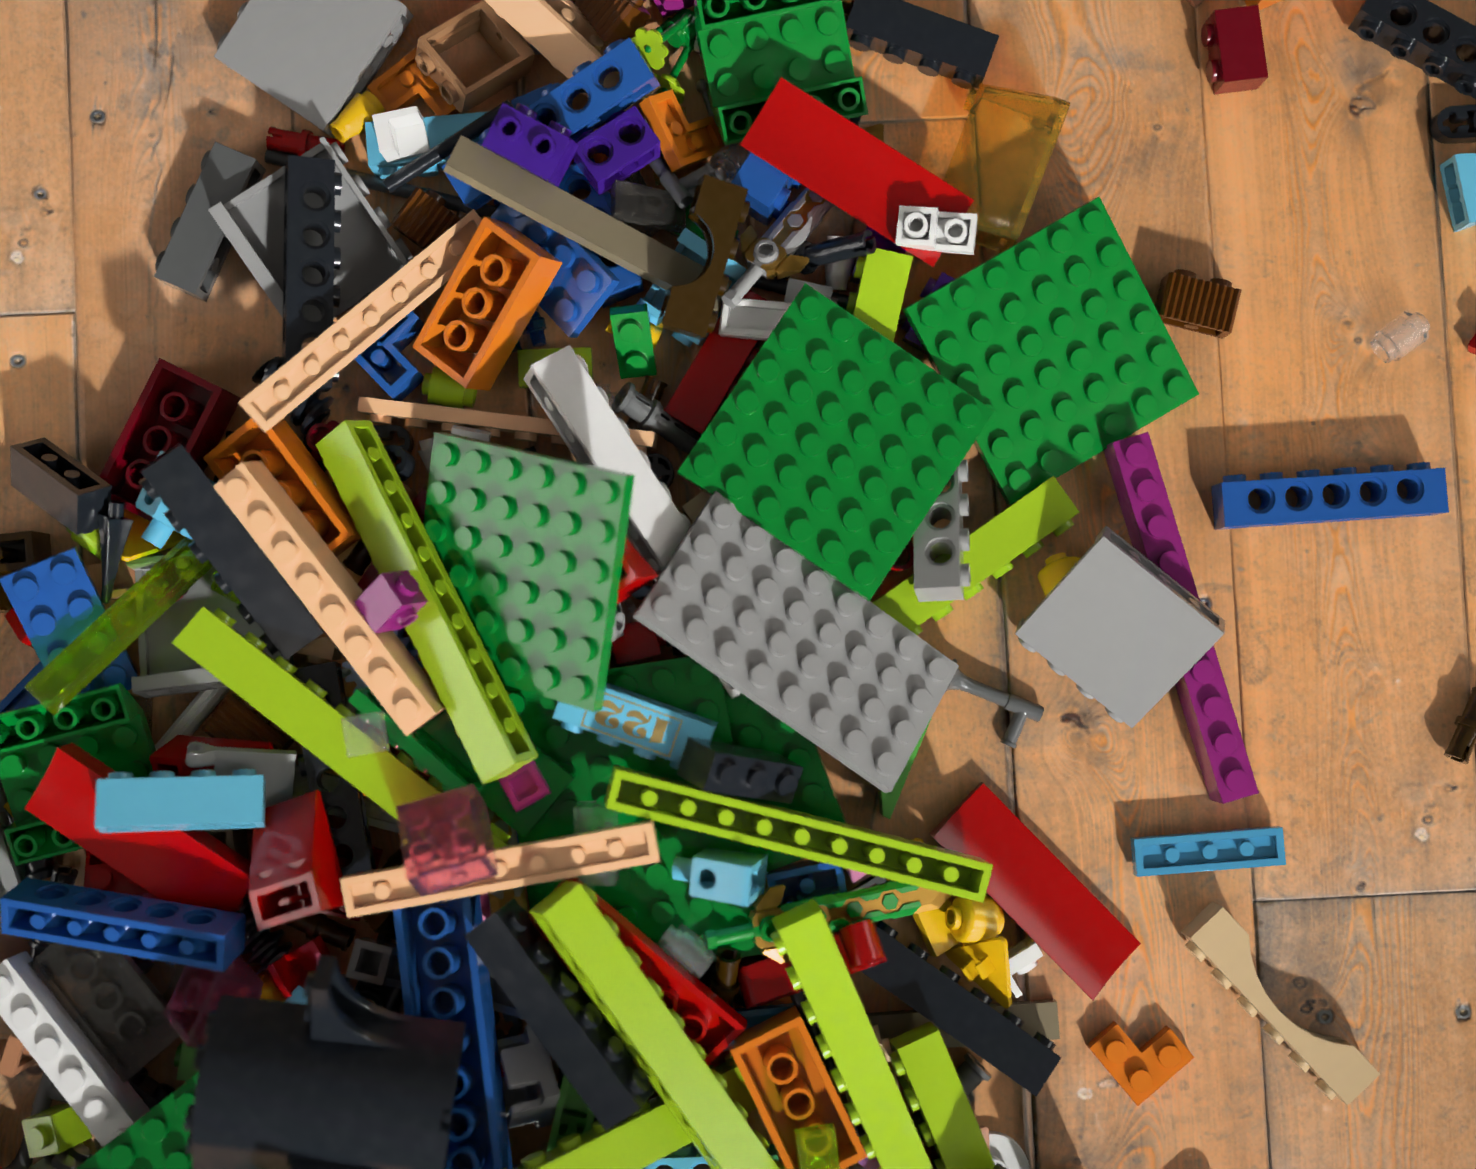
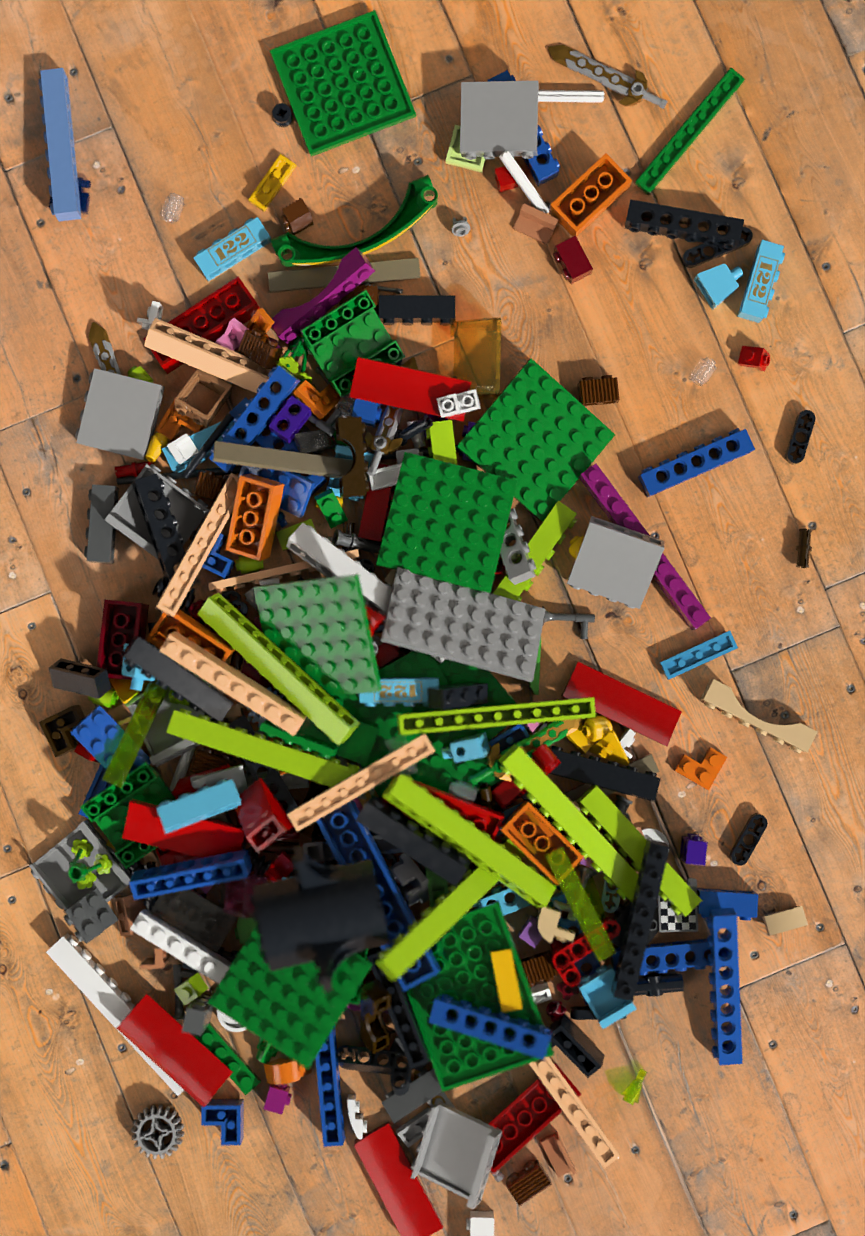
camera: 15 degrees left, 0 degrees up
(113, 535) = (115, 692): black piece -> none
(365, 734) = (273, 742): clear tile -> none
(391, 601) = (263, 675): magenta brick -> none
(446, 840) = (331, 776): clear pink brick -> none
(525, 786) = (358, 740): dark pink tile -> none
(531, 144) = (250, 433): dark purple brick -> none

